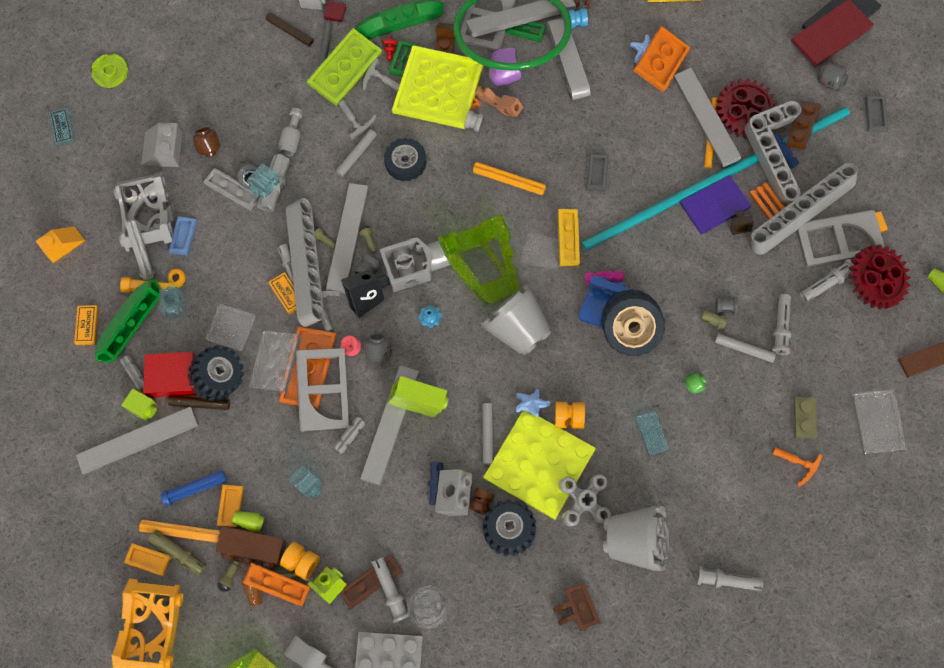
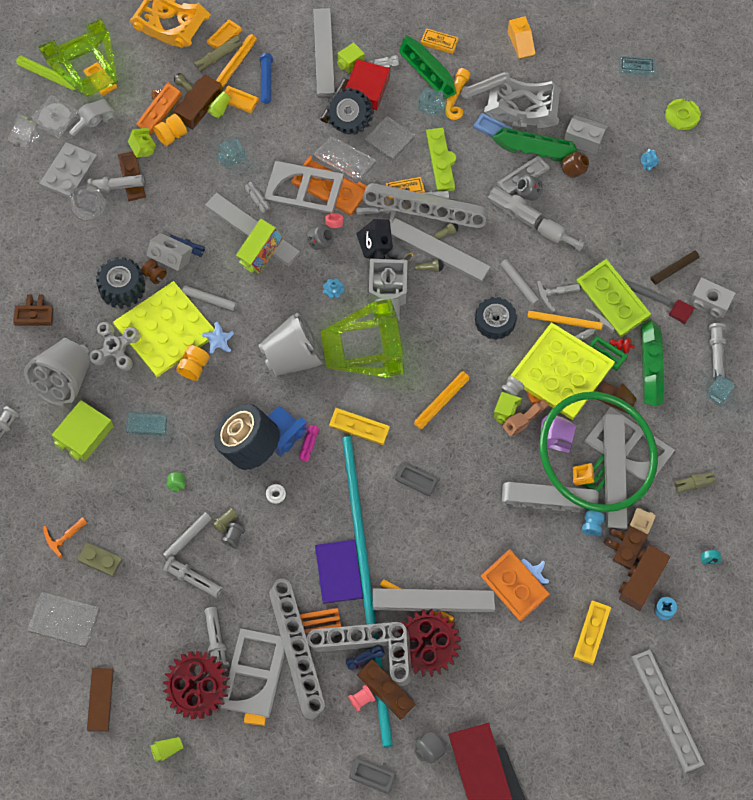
camera: 105 degrees right, 5 degrees down
(176, 81) = (649, 159): none -> dark azure plant
(192, 186) = (534, 143): none -> green brick
(238, 271) = (441, 159): none -> lime hinge
(263, 181) = (512, 190): clear light blue brick -> none
(383, 101) = (565, 320): none -> light orange bar
(497, 120) = (506, 407): none -> lime window
(534, 38) = (583, 474): none -> light orange tile
(670, 281) = (275, 487): none -> white plate
(689, 491) = (82, 431): none -> lime brick
(741, 223) = (308, 583): dark brown tile -> none
(819, 143) = (361, 698): none -> coral bush

